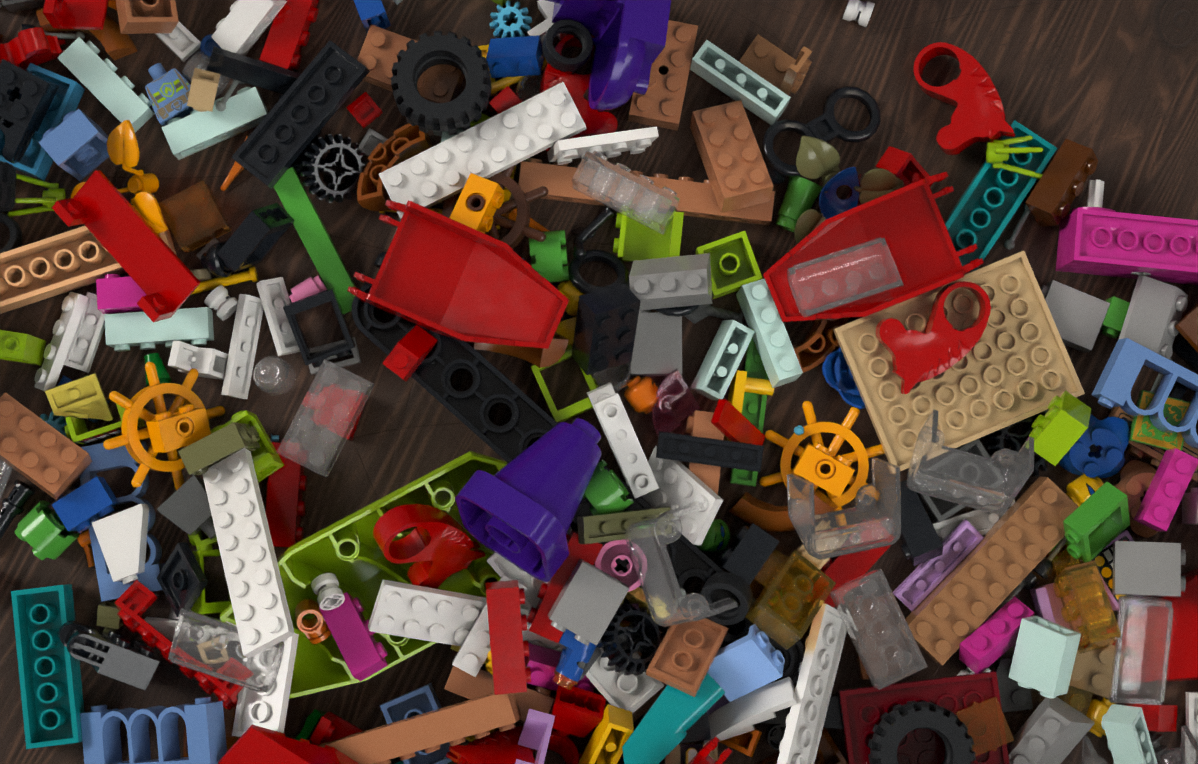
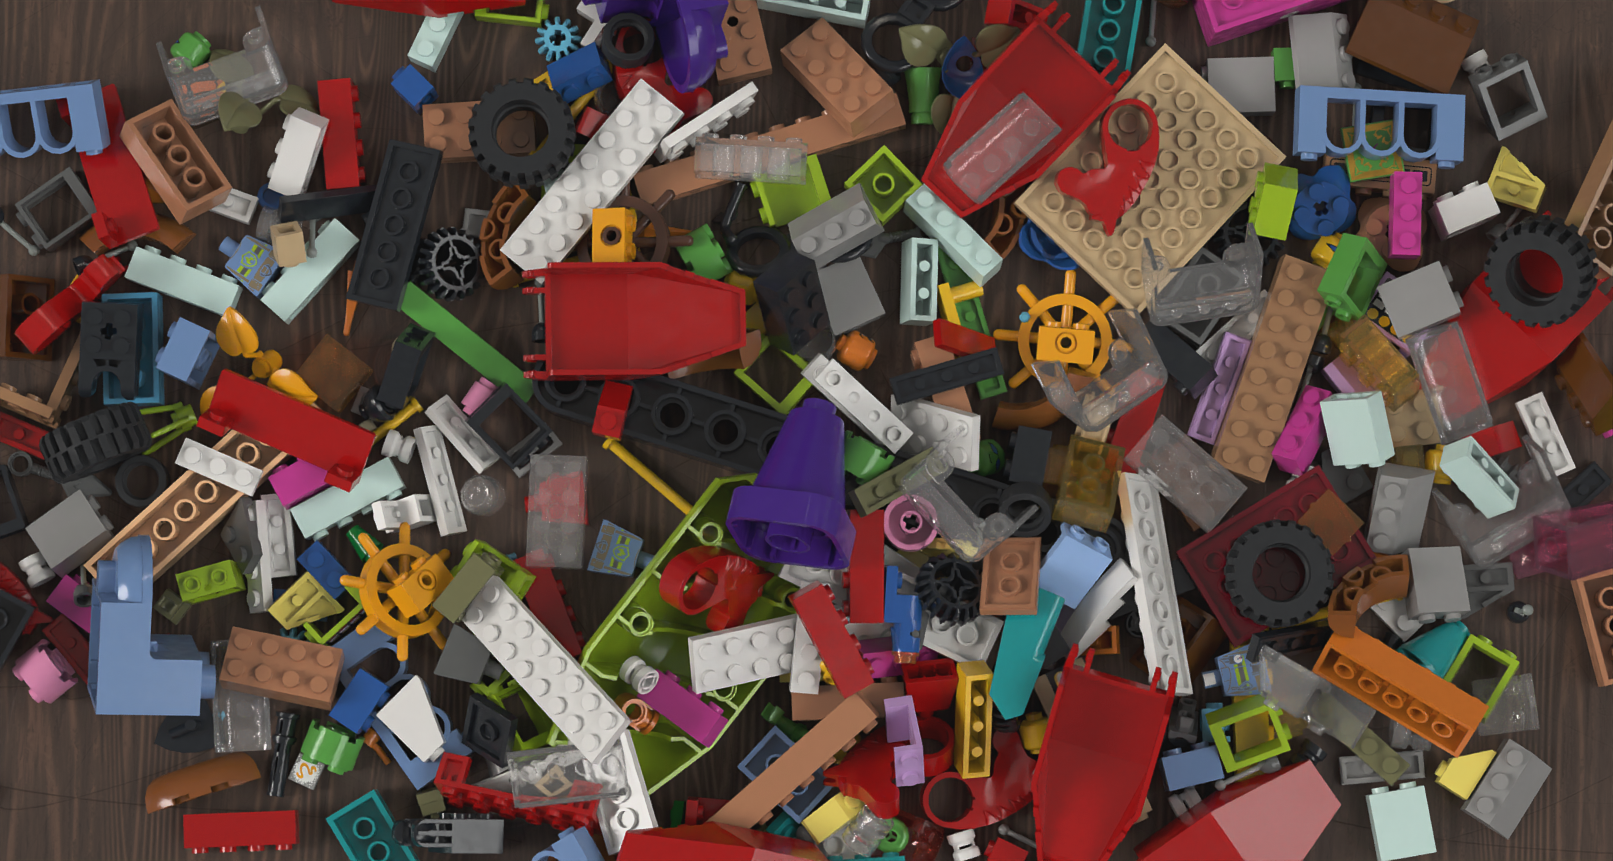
camera: 20 degrees left, 0 degrees up
(15, 545) = (306, 773): none -> tile
(53, 320) = (242, 537): none -> dark grey wing
(59, 252) = (219, 467): none -> white plate
(112, 376) = (325, 569): none -> blue brick
(364, 110) = (452, 192): red plate -> none
(364, 474) = (618, 552): none -> medium blue torso
(420, 421) = (648, 475): none -> yellow bar
(434, 677) = (791, 729): none -> bright green piece
(587, 603) = (894, 570): light grey brick -> none
(673, 403) = (890, 346): clear pink brick -> none

